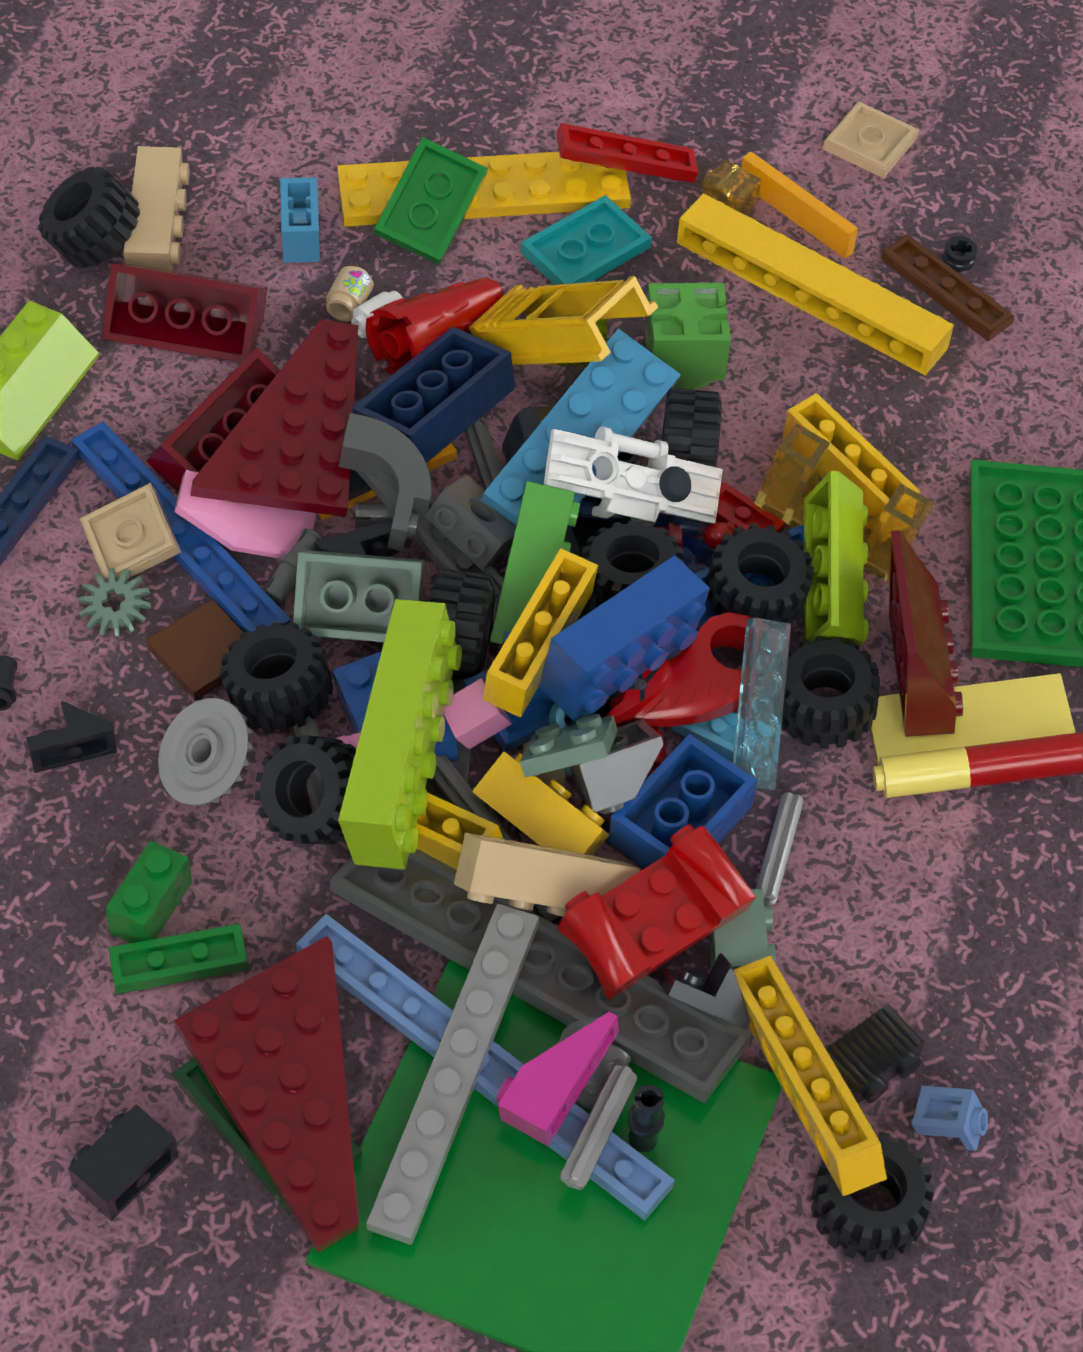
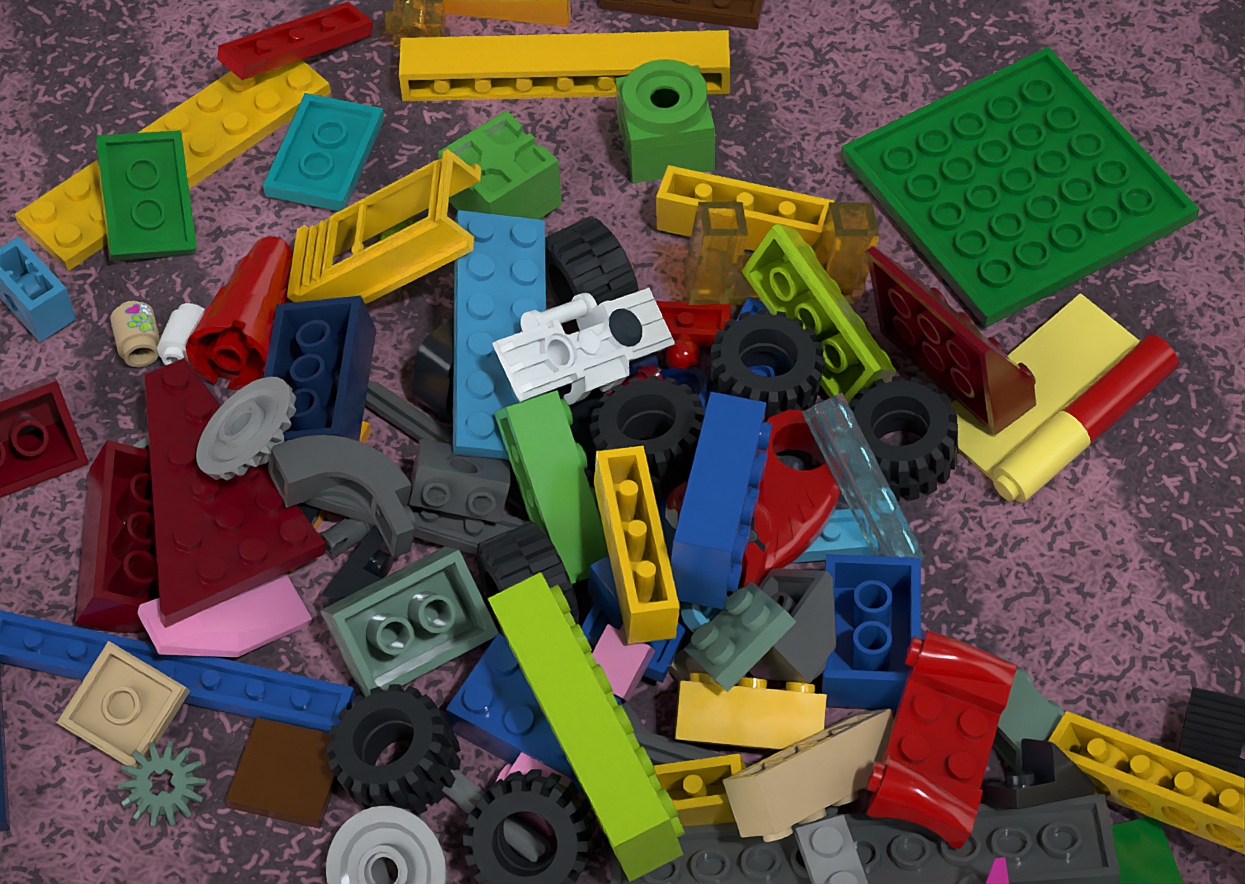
camera: 30 degrees left, 0 degrees up
(285, 576) = (310, 633): dark grey pin -> none
(346, 393) = (246, 428): none -> light grey gear
(779, 846) = (970, 603): light grey axle -> none
(848, 361) = (665, 119): none -> bright green piece

